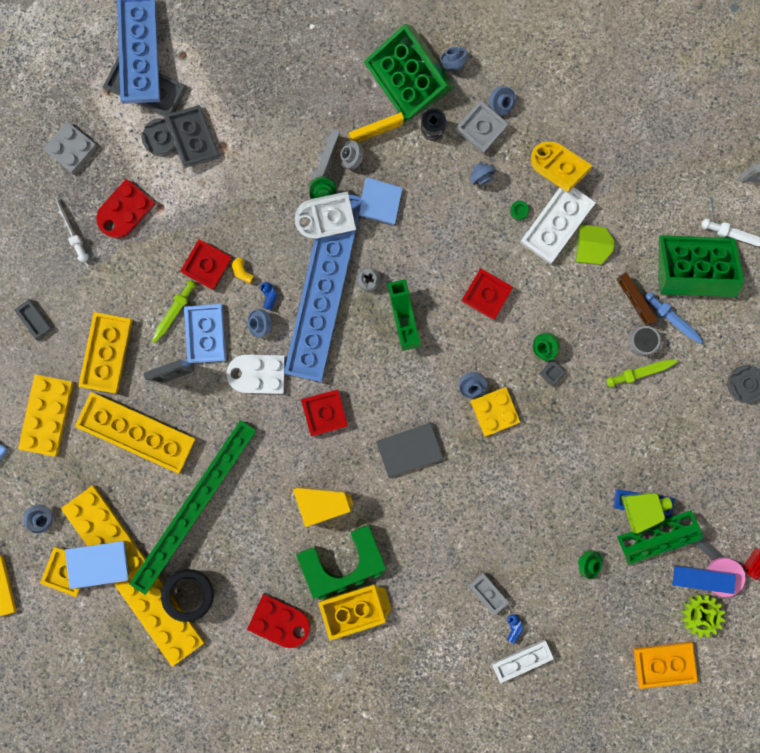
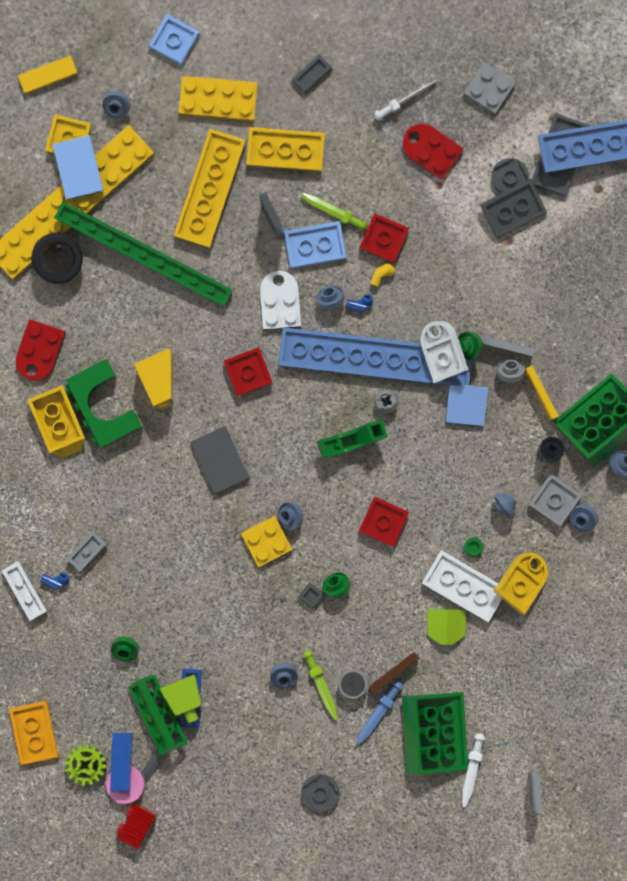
camera: 85 degrees right, 0 degrees up
(630, 407) = (283, 675): none -> sand blue plate

